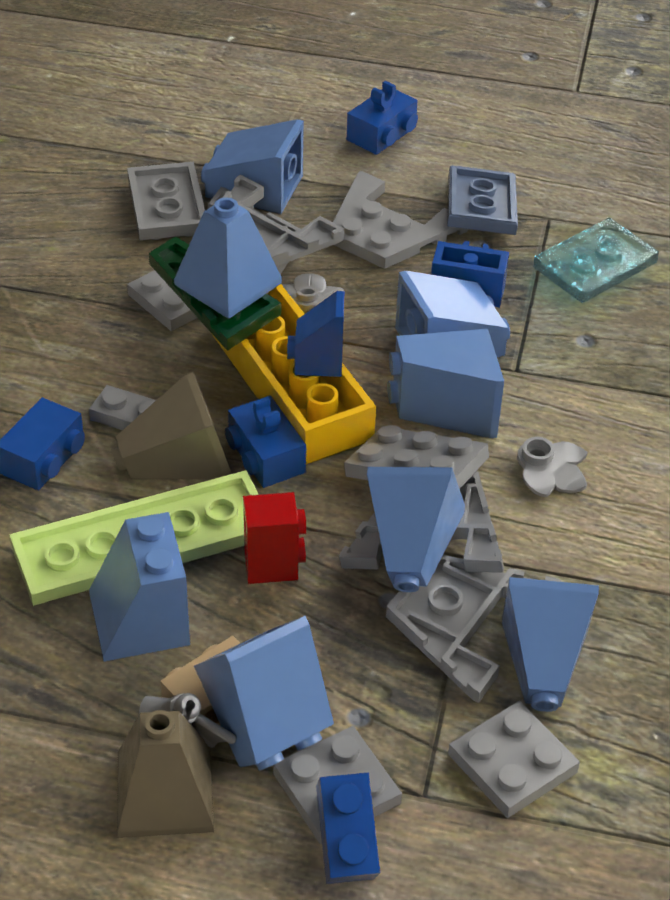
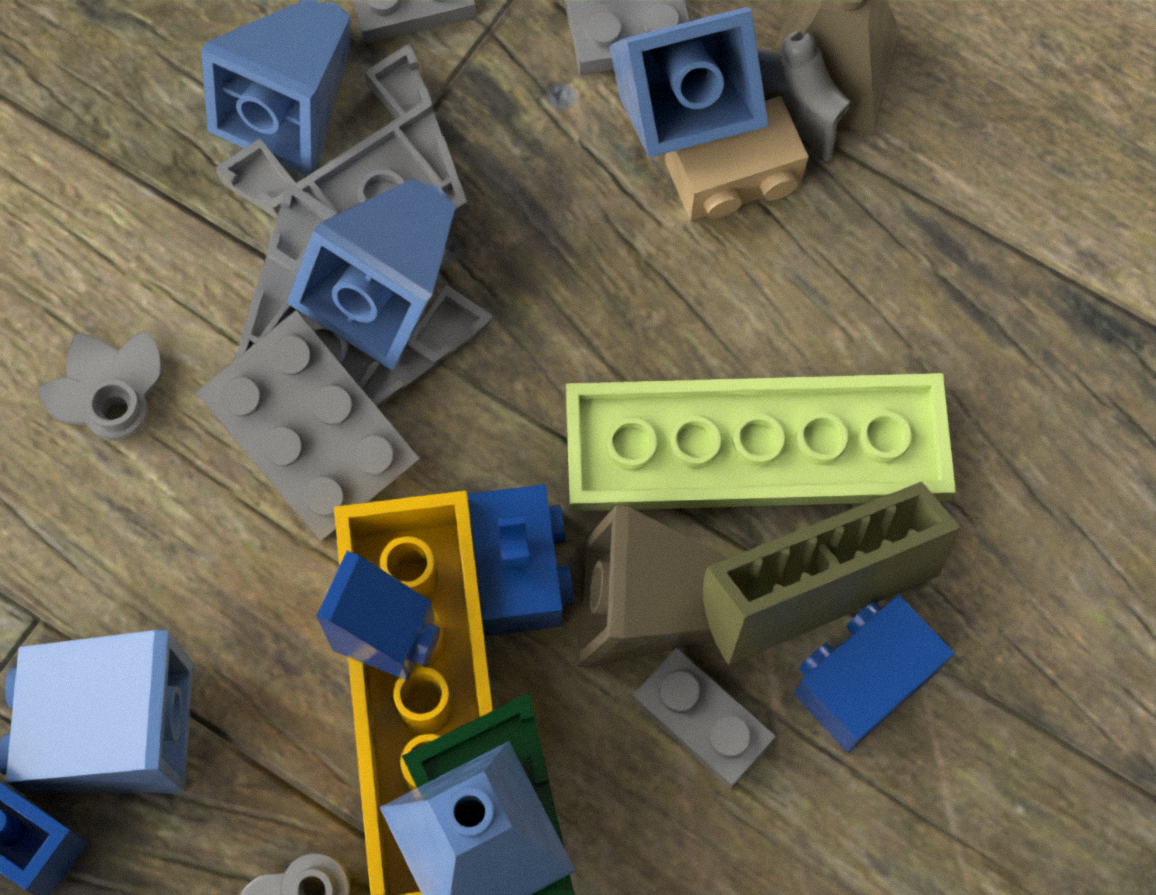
camera: 160 degrees left, 25 degrees up
(76, 457) = (826, 571): none -> olive brick
(141, 591) = (794, 296): medium blue slope -> none
(272, 537) = (583, 329): red brick -> none
(448, 381) = (177, 555): medium blue slope -> none

